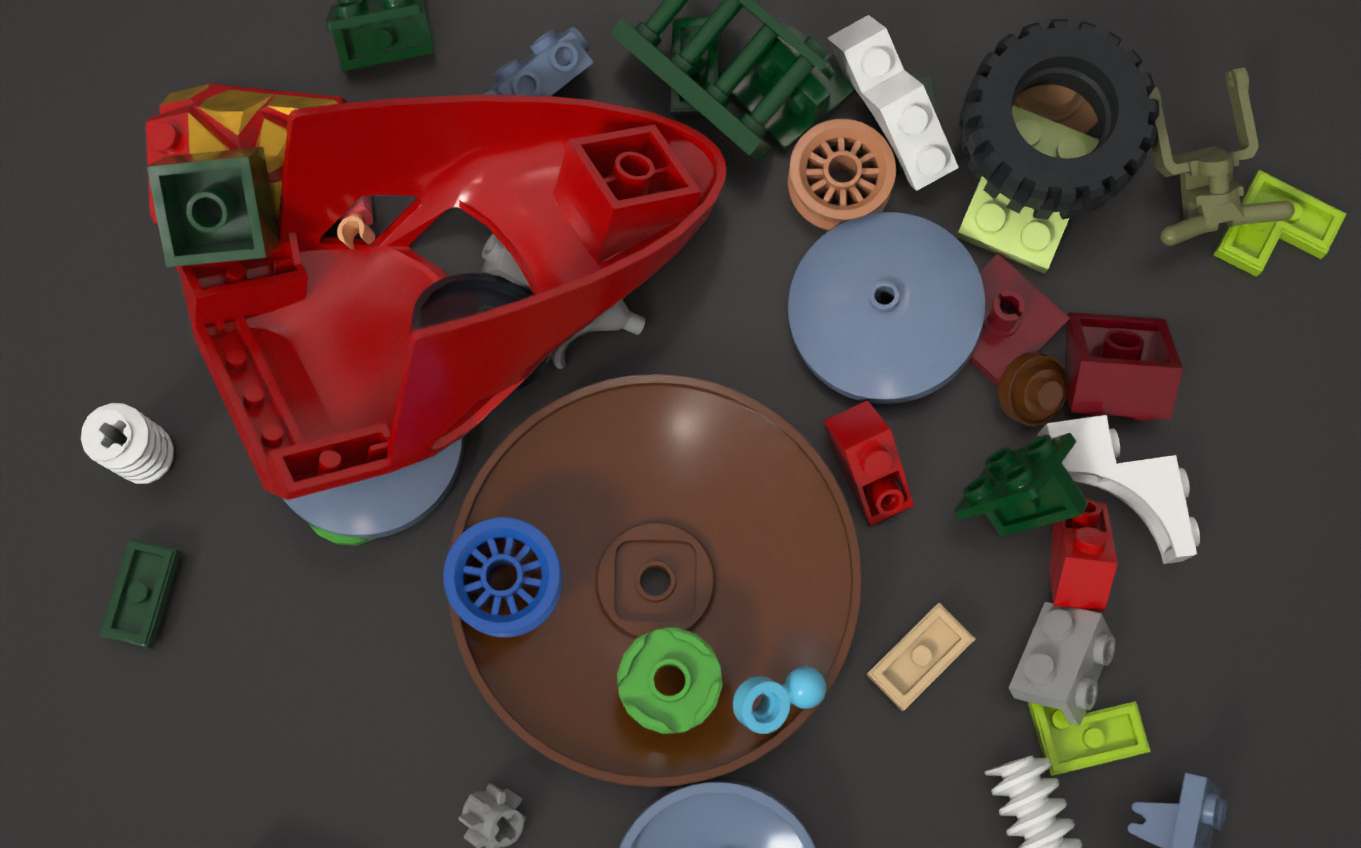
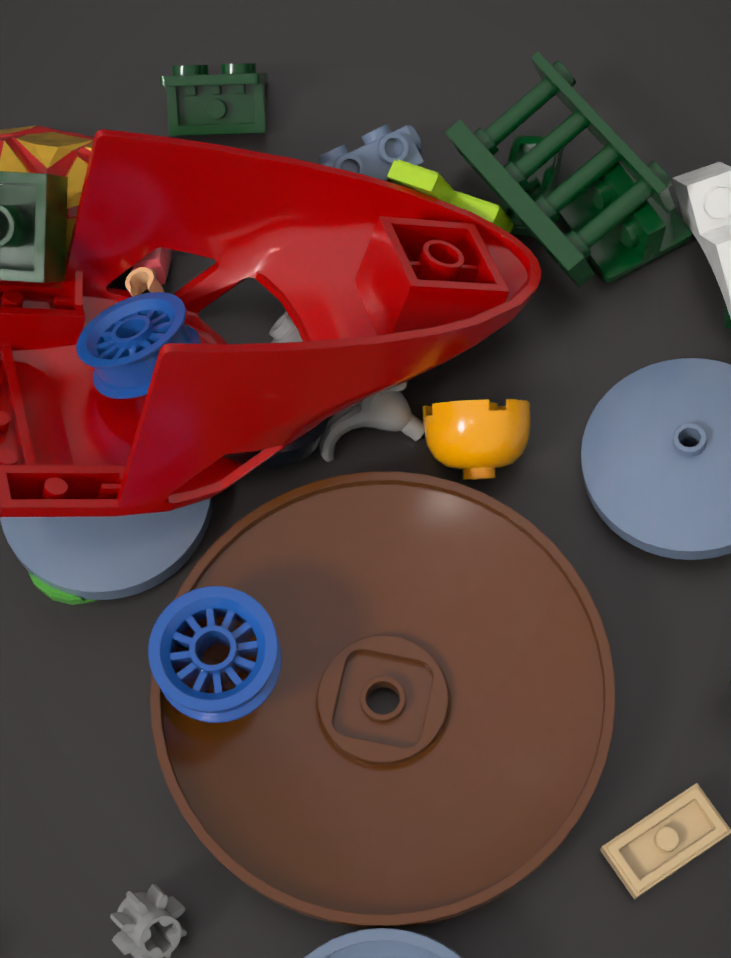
camera: 15 degrees right, 10 degrees down
(366, 296) = (127, 340): none -> blue wheel
(612, 93) = (434, 185): none -> lime tile
(662, 649) = (382, 839): bright green tile -> none
(693, 323) = (477, 434): none -> light orange cylinder
(802, 688) = (523, 841): medium azure plate -> none
(840, 134) = (663, 287): nougat wheel -> none
(869, 462) = (644, 616): red slope -> none

